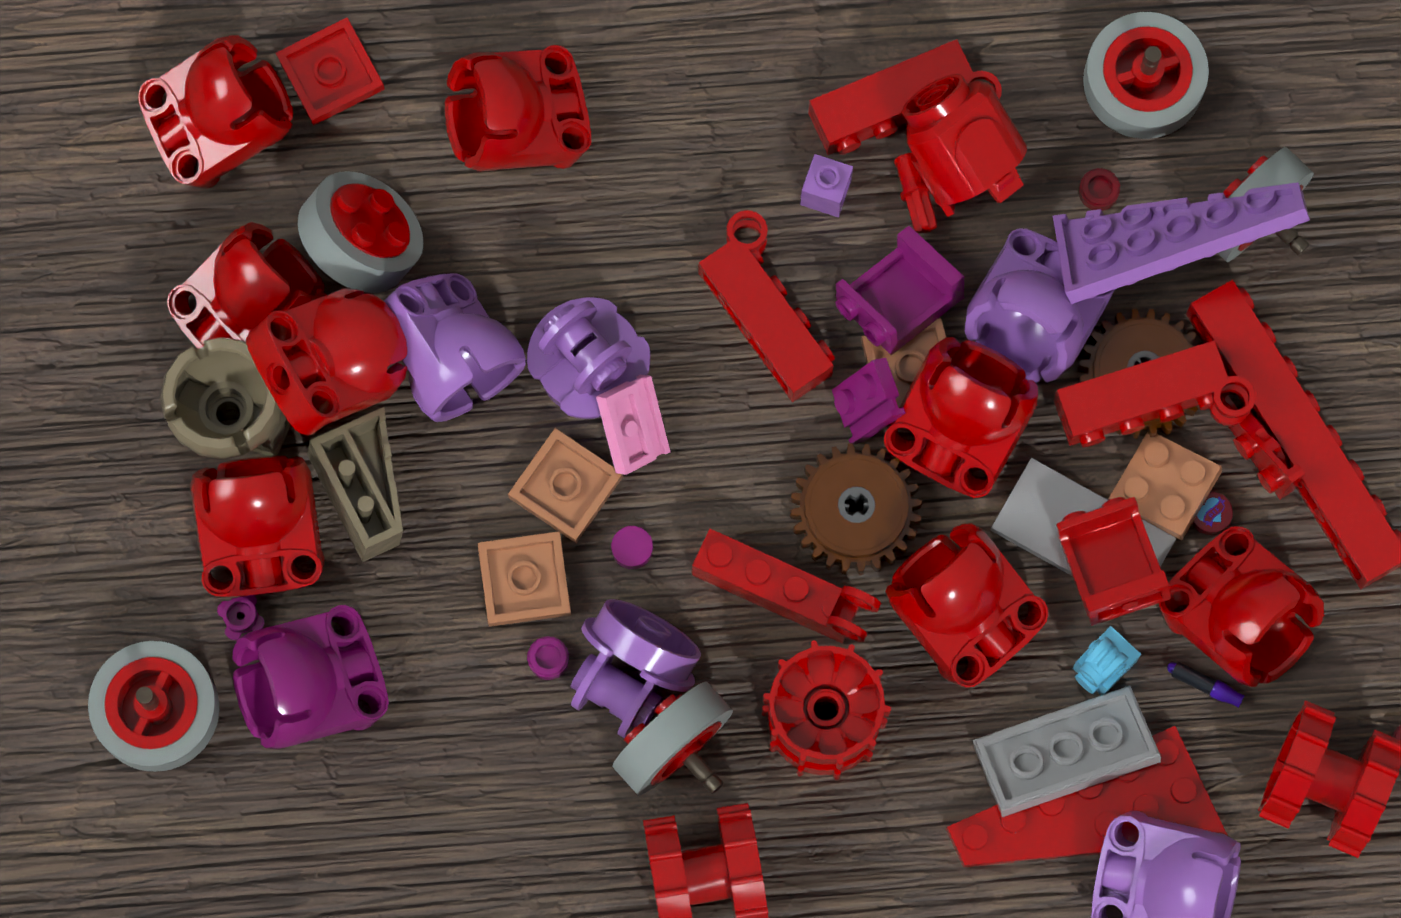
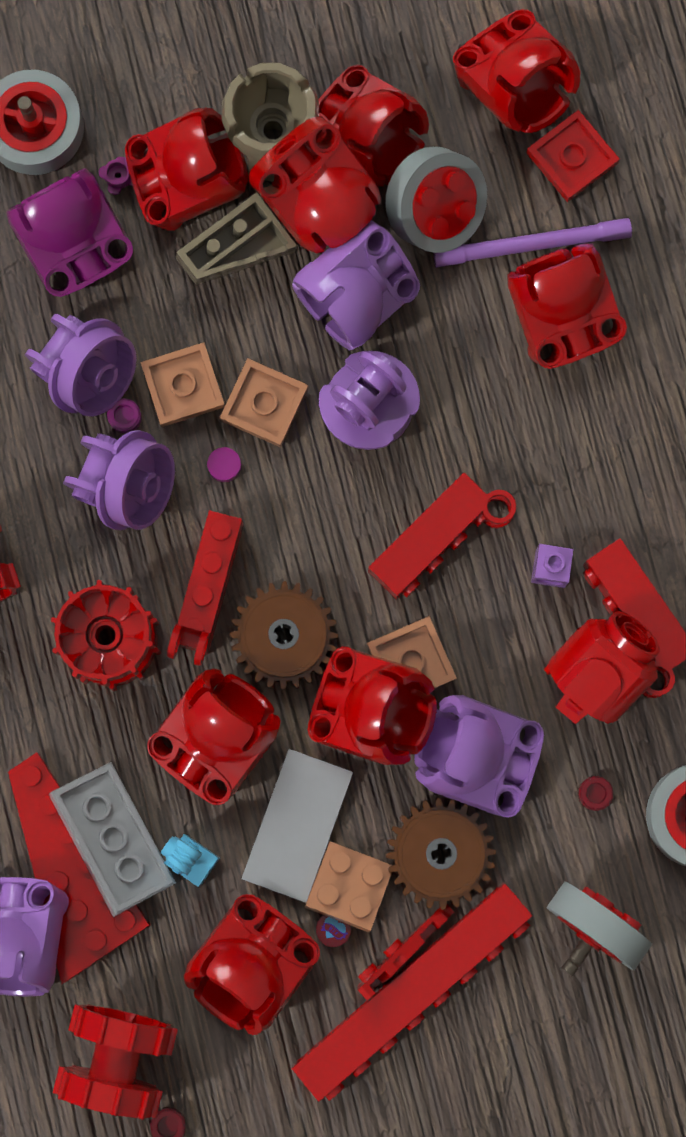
camera: 80 degrees right, 5 degrees up
(430, 56) = (601, 232): none -> medium lavender piece
(493, 675) = (85, 364): none -> medium lavender piece
(633, 424) = (319, 443): bright pink plate -> none
(674, 740) = (61, 519): light grey wheel -> none
(868, 400) = (373, 628): magenta plate -> none
(901, 293) = (469, 641): magenta panel -> none
(915, 195) = (551, 644): red axle -> none
(1112, 560) = (272, 851): red panel -> none
(1149, 392) = (417, 857): red hinge -> none
(1162, 235) = (547, 843): medium lavender wing -> none
(1214, 688) = (188, 945): piece -> none

